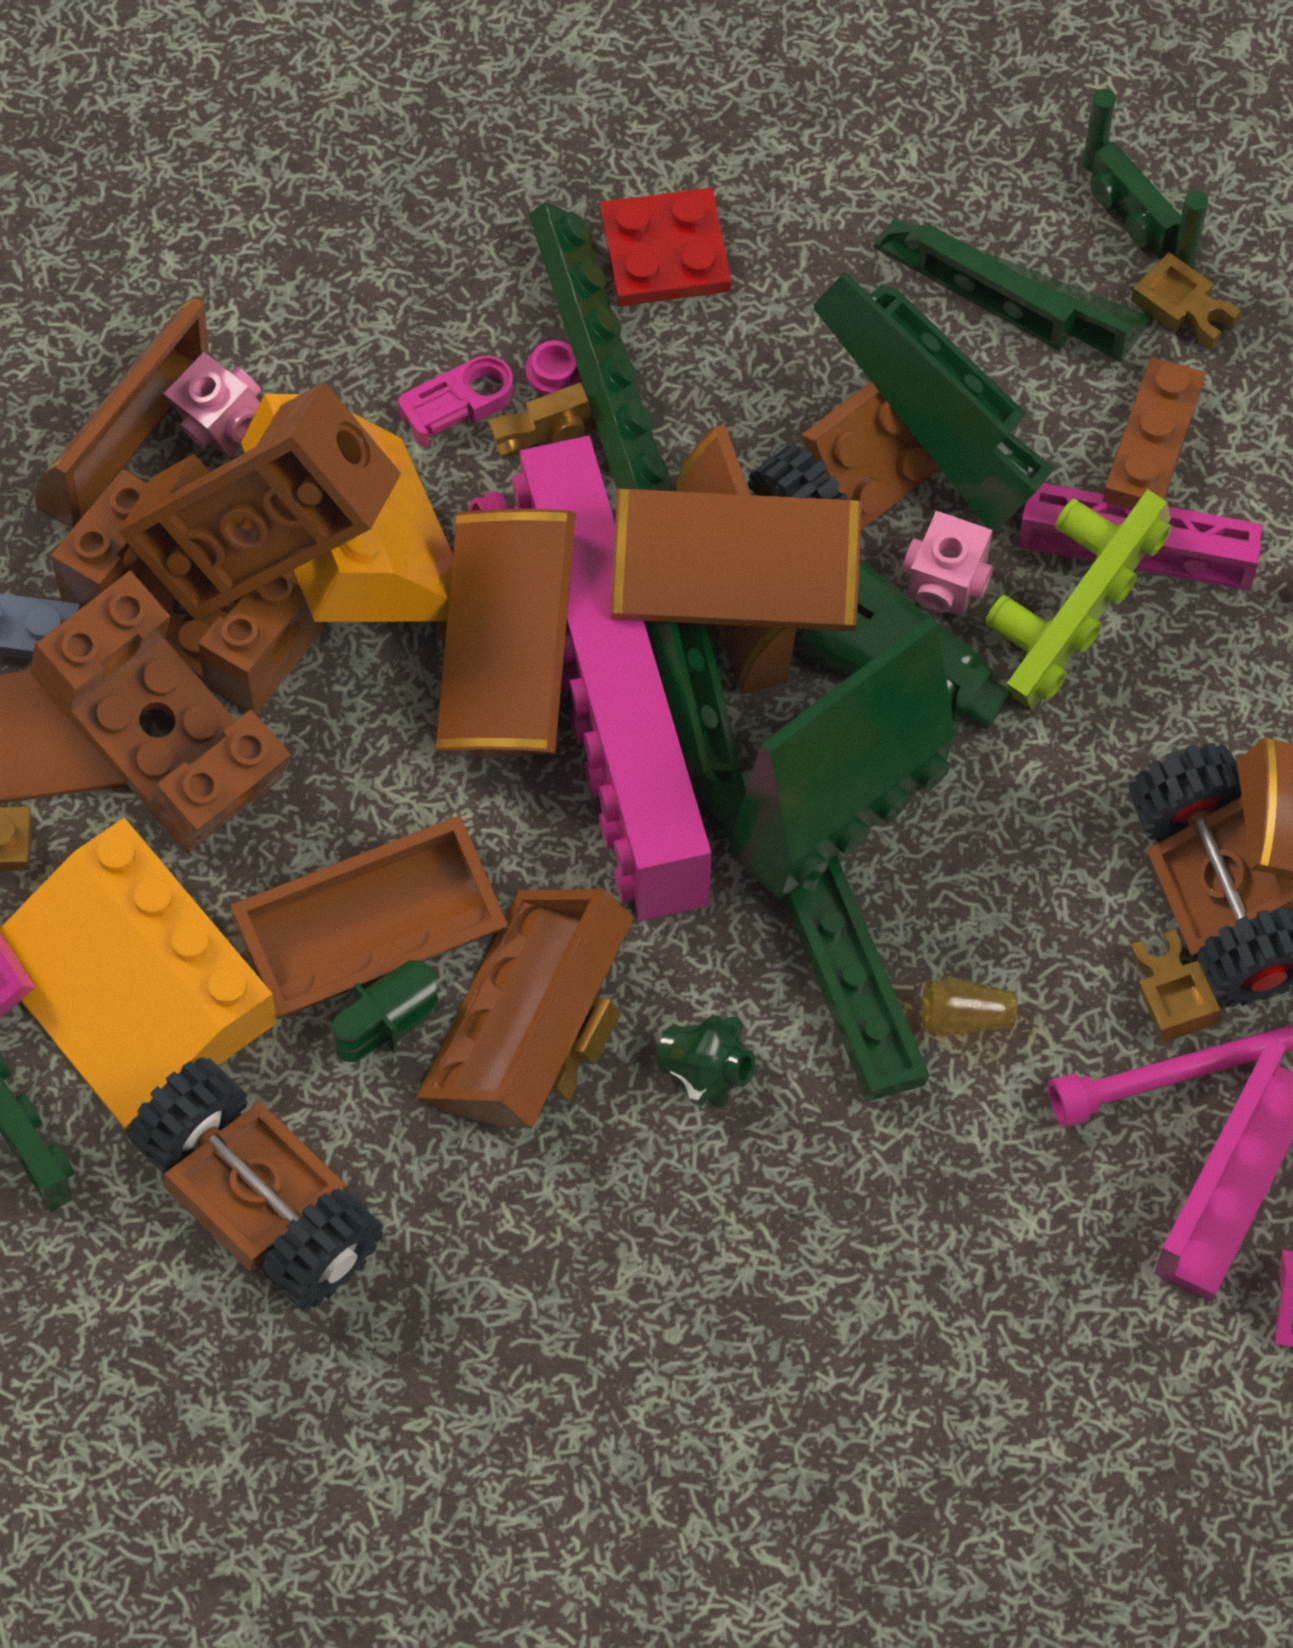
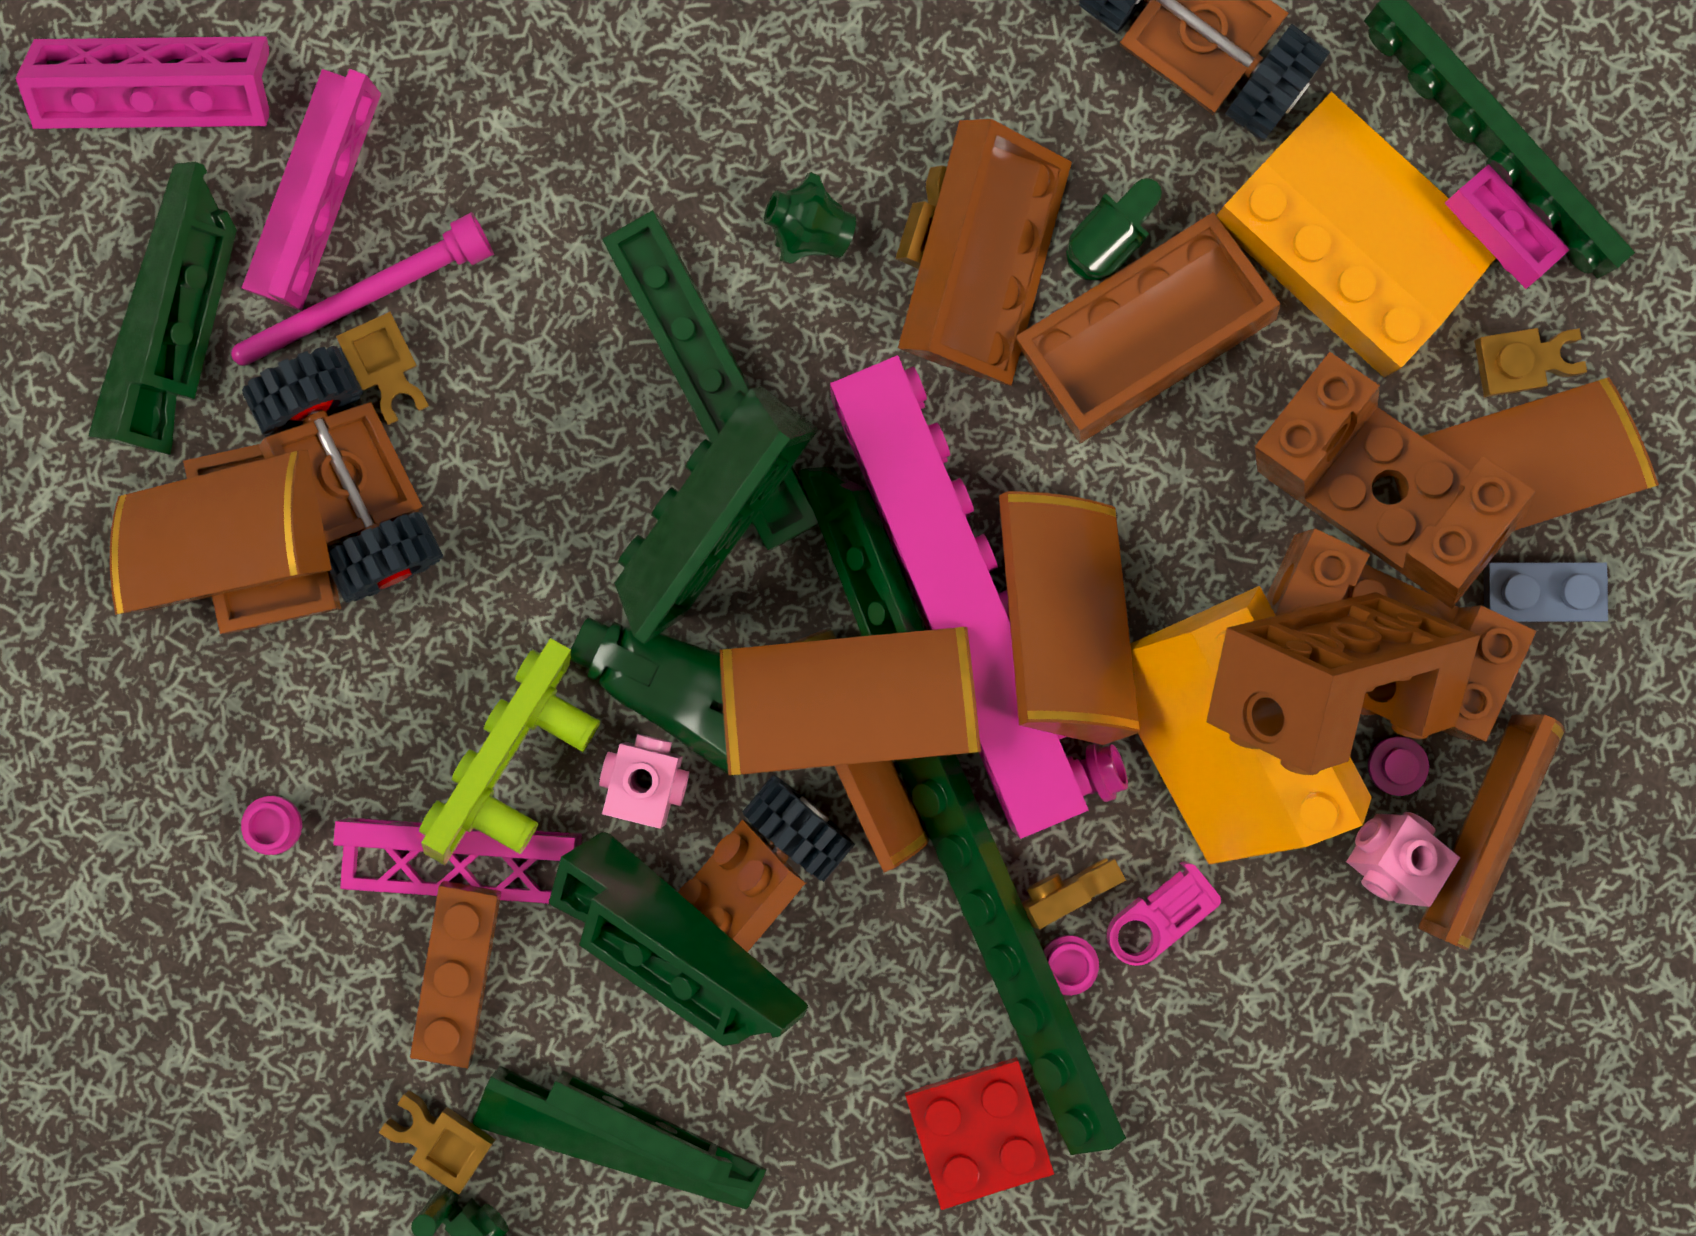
camera: 175 degrees right, 25 degrees up
(965, 1007) = (576, 317): clear yellow cone -> none

